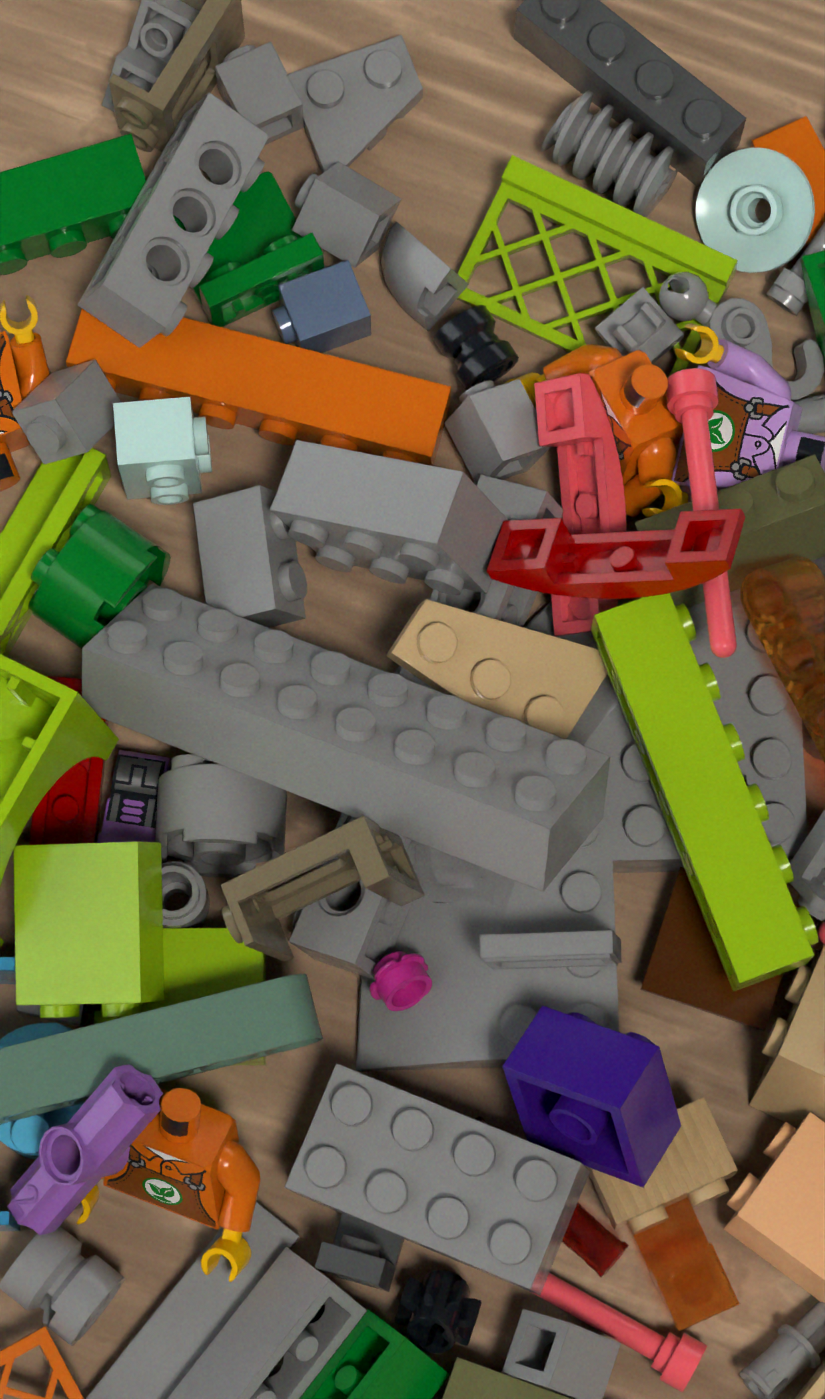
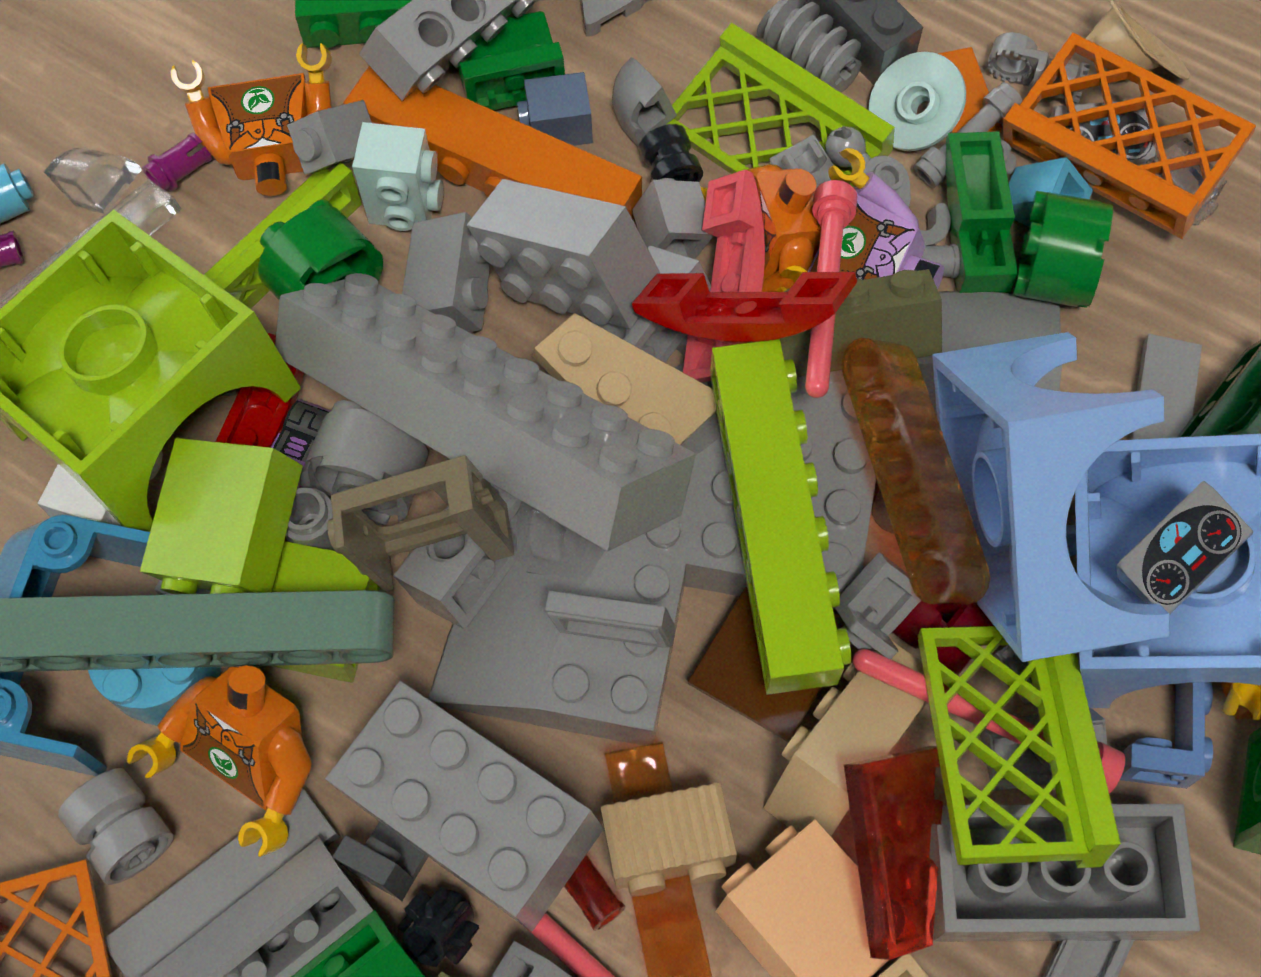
camera: 15 degrees right, 10 degrees down
(85, 1149) = (154, 701): medium lavender piece -> none
(345, 213) = (593, 44): light grey brick -> none
(400, 980) = (479, 629): dark pink plate -> none
(593, 1094) = (616, 751): dark purple brick -> none

